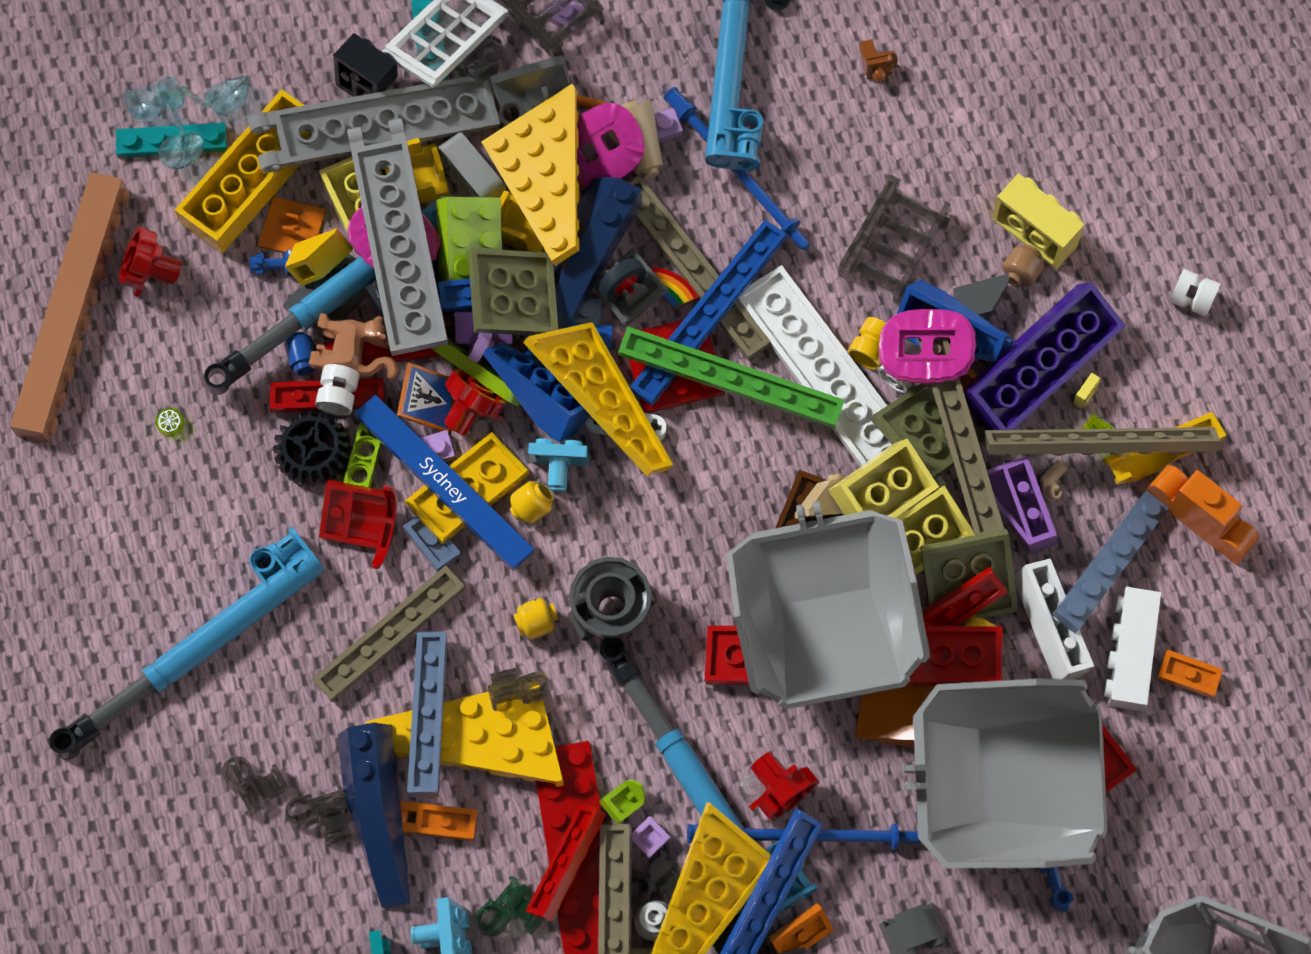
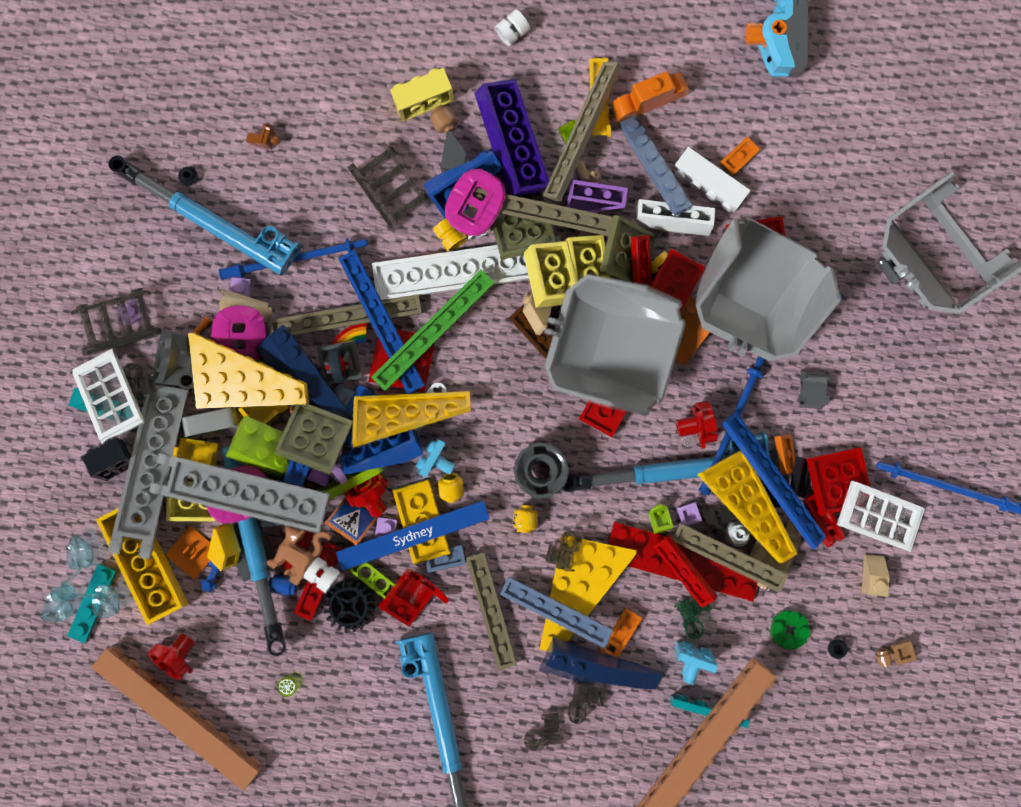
camera: 70 degrees left, 15 degrees up
(1086, 391) = (542, 123): light yellow tile -> none

